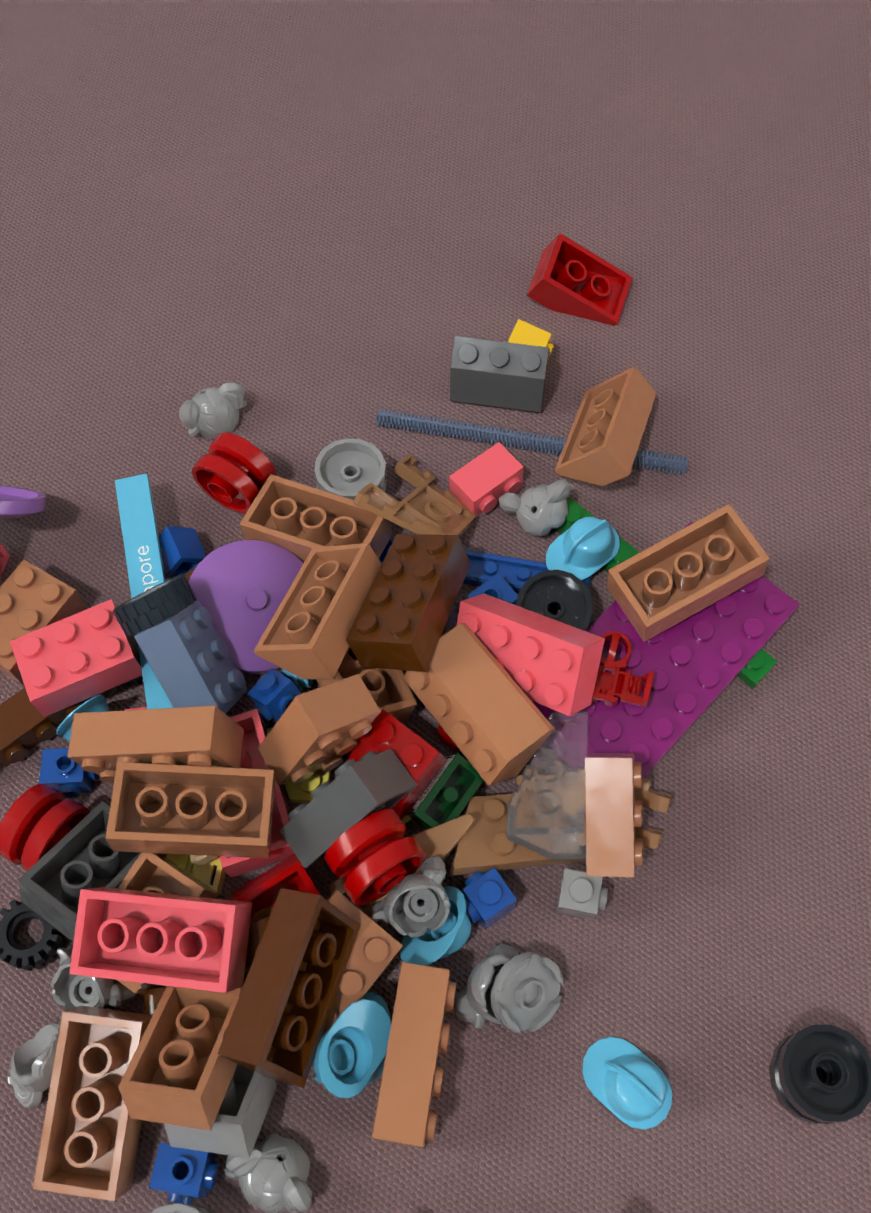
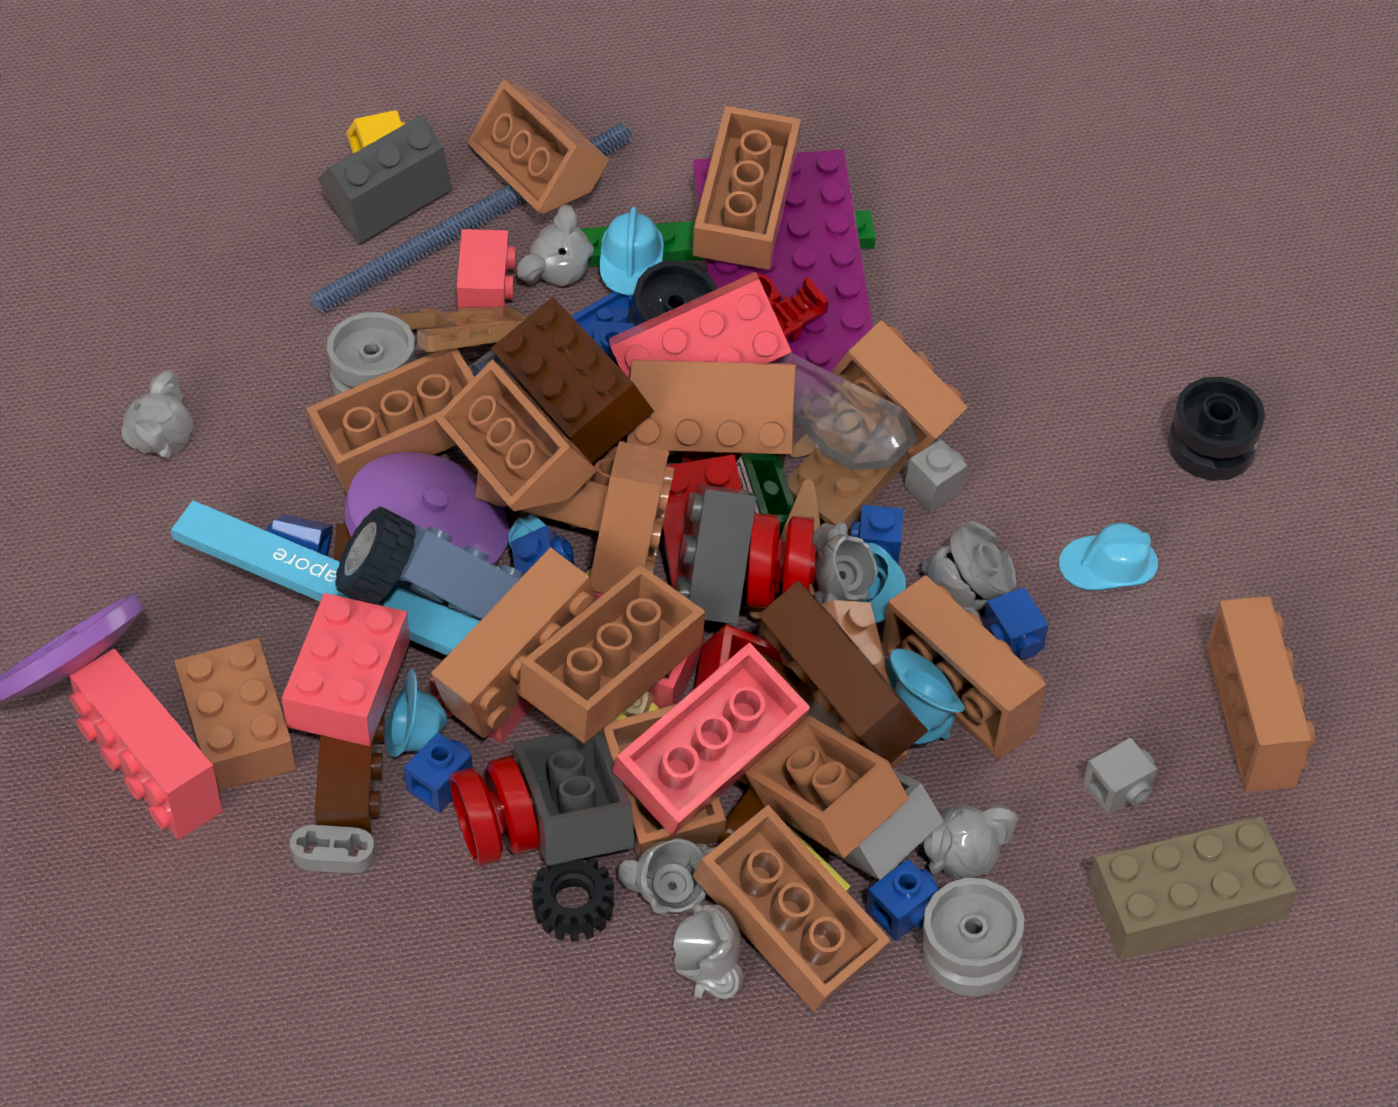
camera: 55 degrees left, 10 degrees down
(232, 472) = (266, 439): red wheel -> none
(494, 1061) = (1017, 622): none -> blue brick
(579, 282) = (348, 60): red slope -> none

